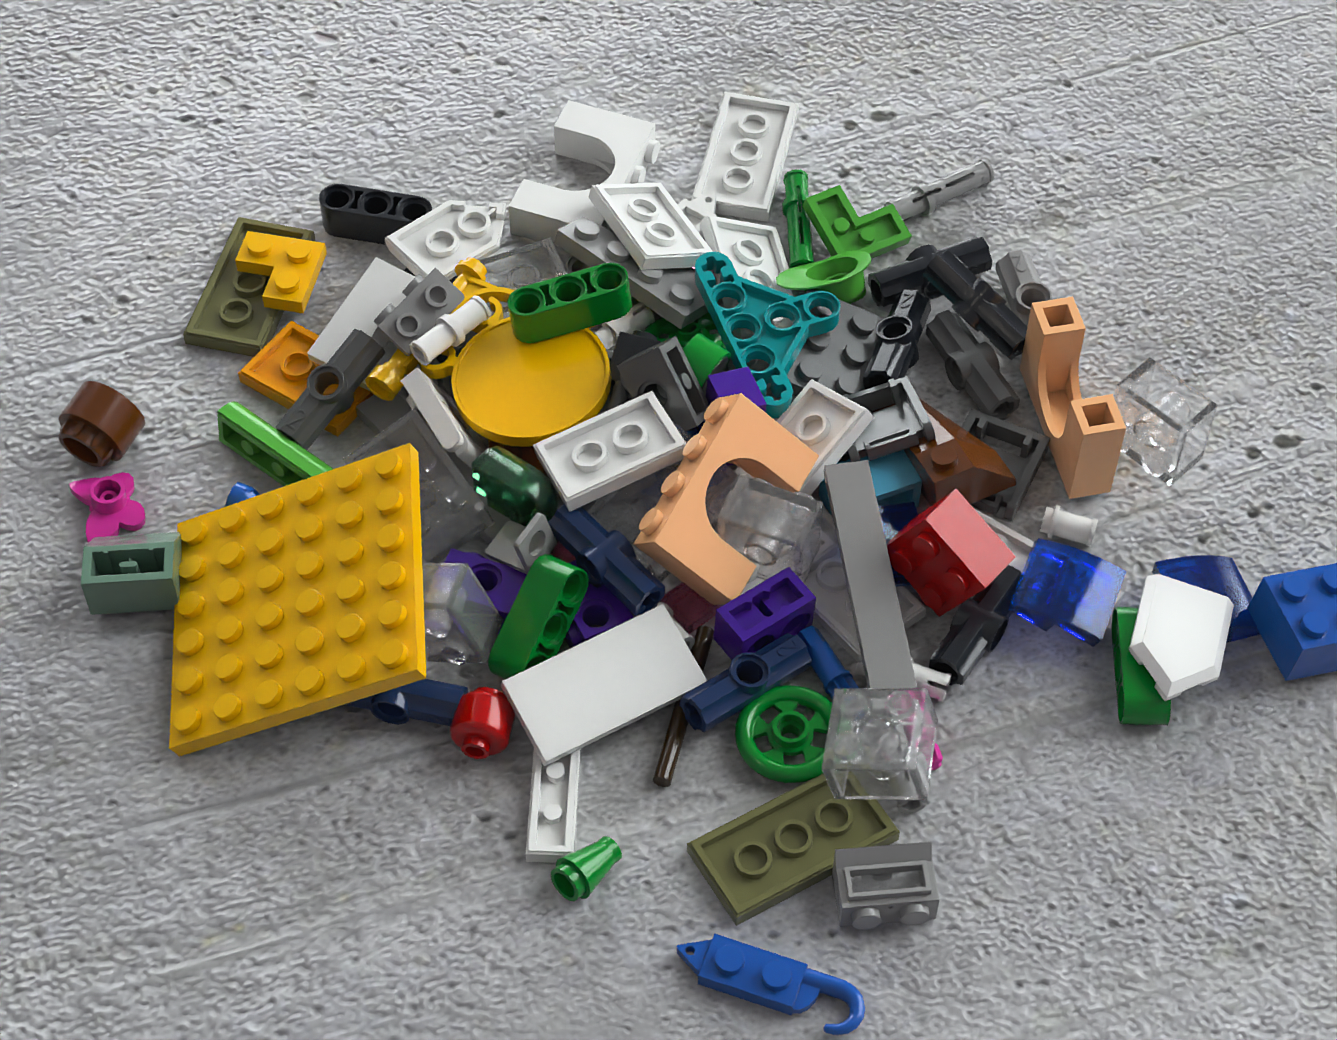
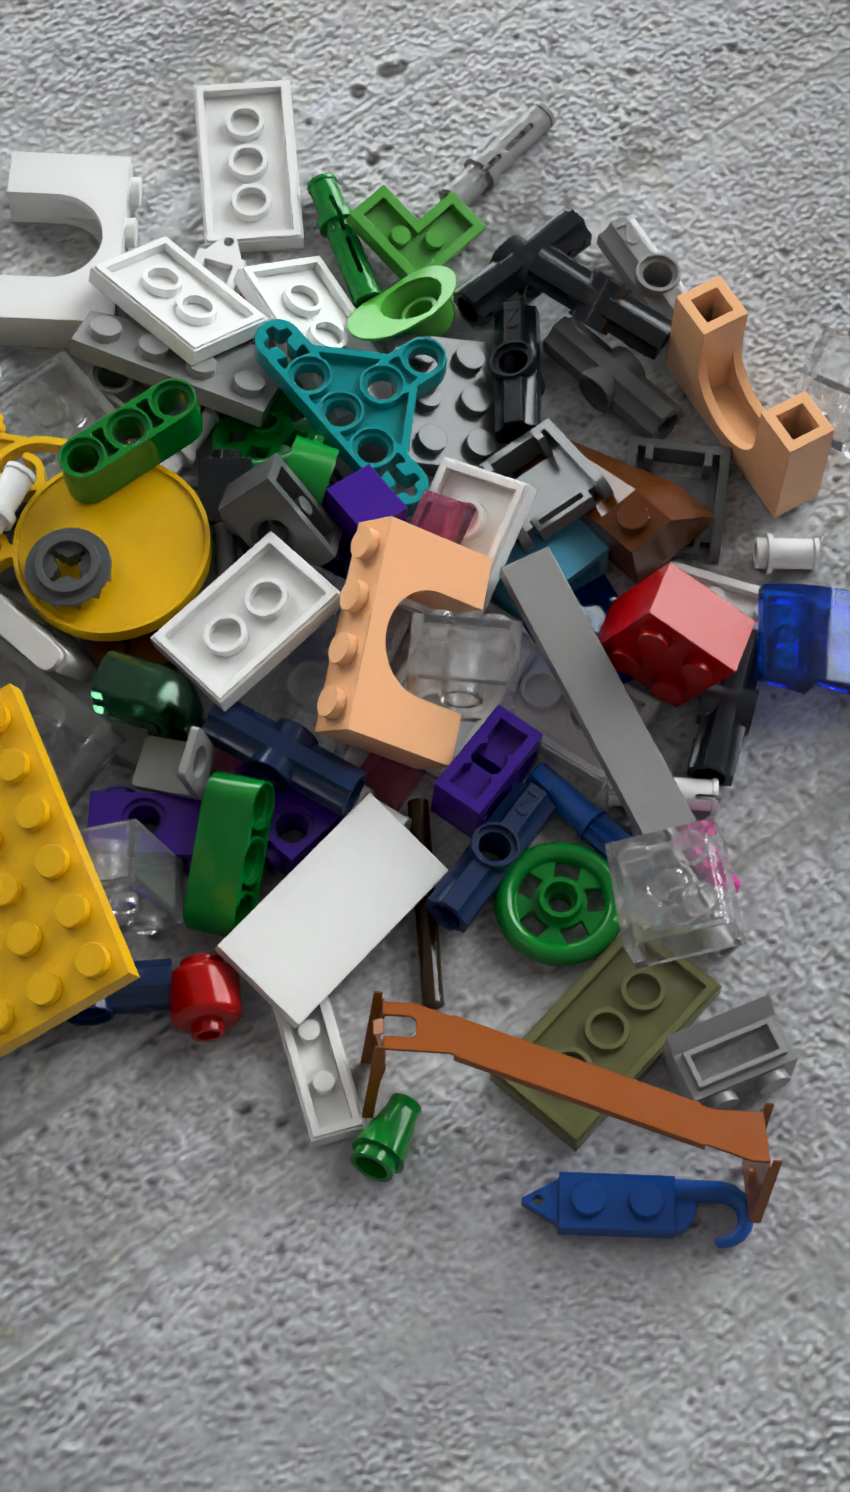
camera: 20 degrees left, 10 degrees up
(498, 367) = (69, 547): none -> dark grey gear
(747, 859) = (579, 1083): none -> dark orange piece
(796, 419) = (443, 516): none -> clear pink tile

